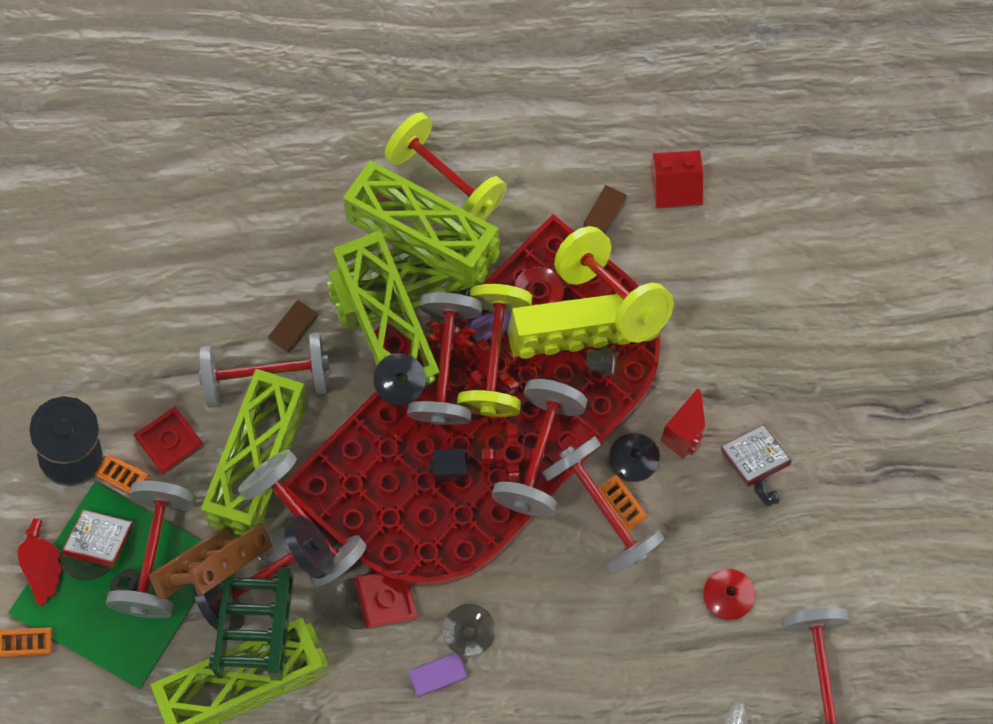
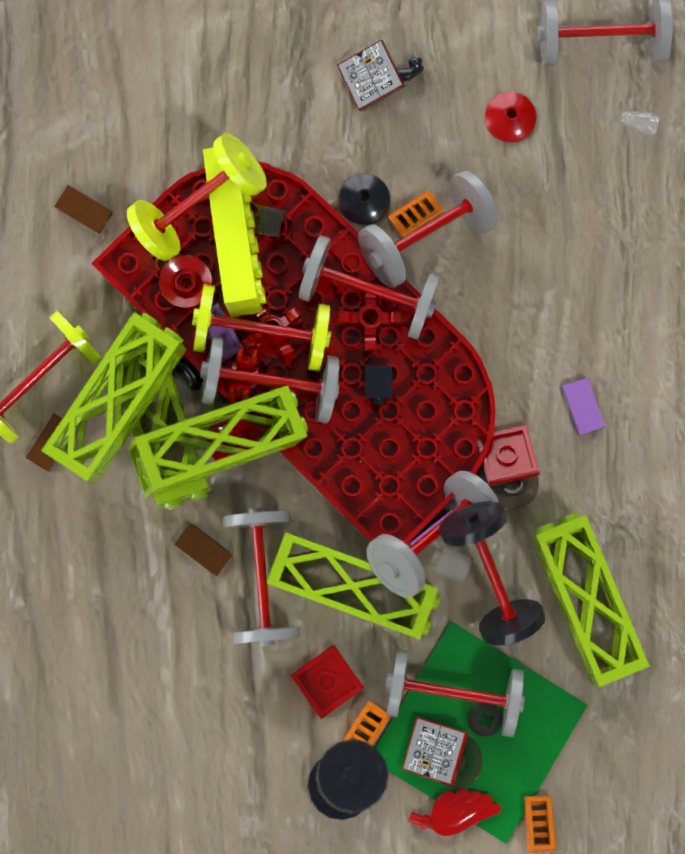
camera: 85 degrees left, 15 degrees up
(210, 561) = (468, 643): dark orange fence -> none
(275, 636) = (532, 558): dark green fence -> none
(395, 392) = (286, 436): black dish -> none
(469, 617) = (551, 363): clear smoke dish -> none
(677, 179) = (53, 128): red slope -> none
(685, 428) = (341, 140): red slope -> none

